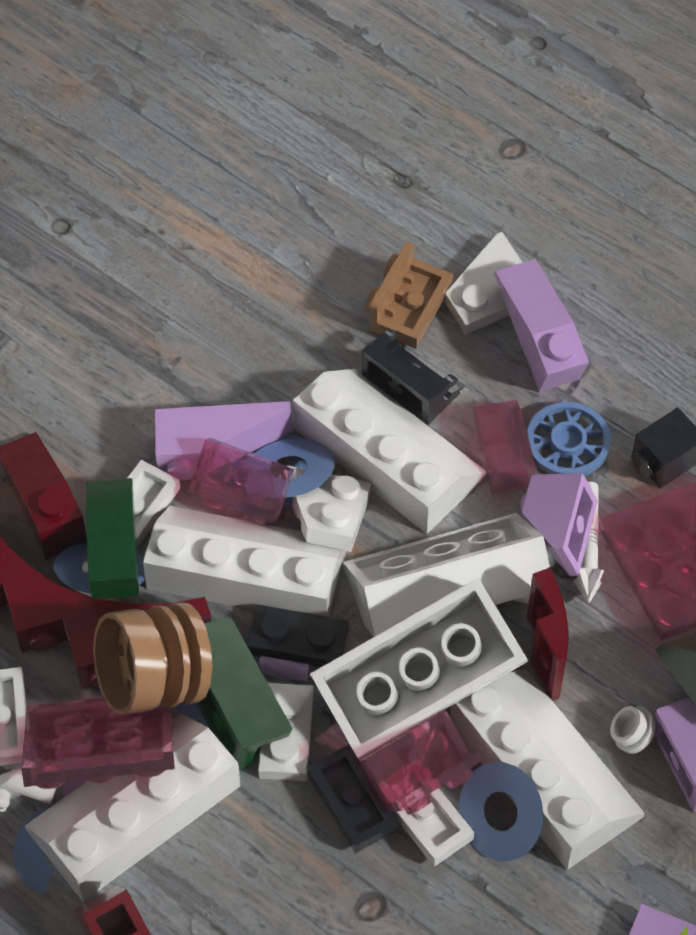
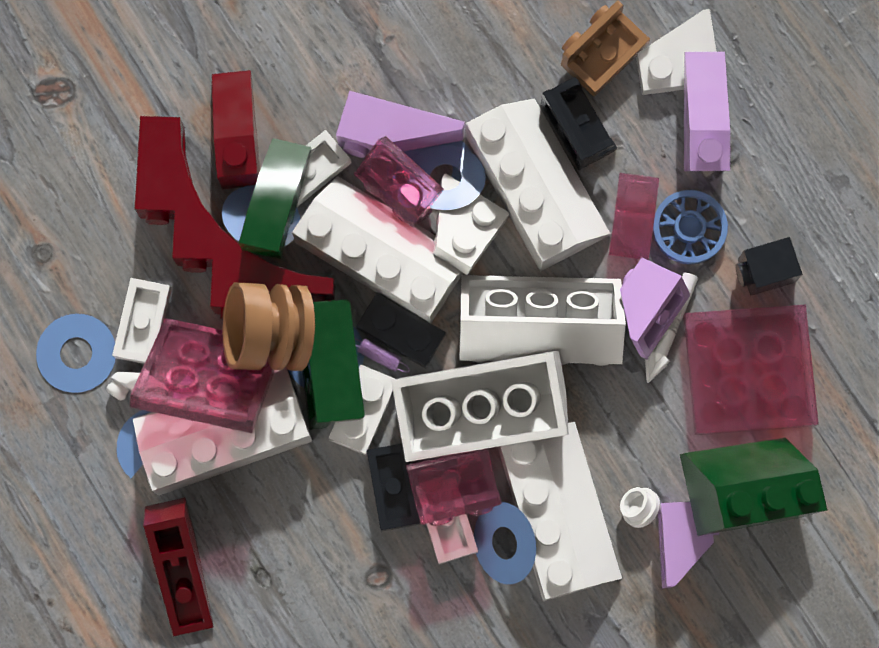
camera: 20 degrees right, 20 degrees up
(551, 637) = (598, 415): dark red slope -> none

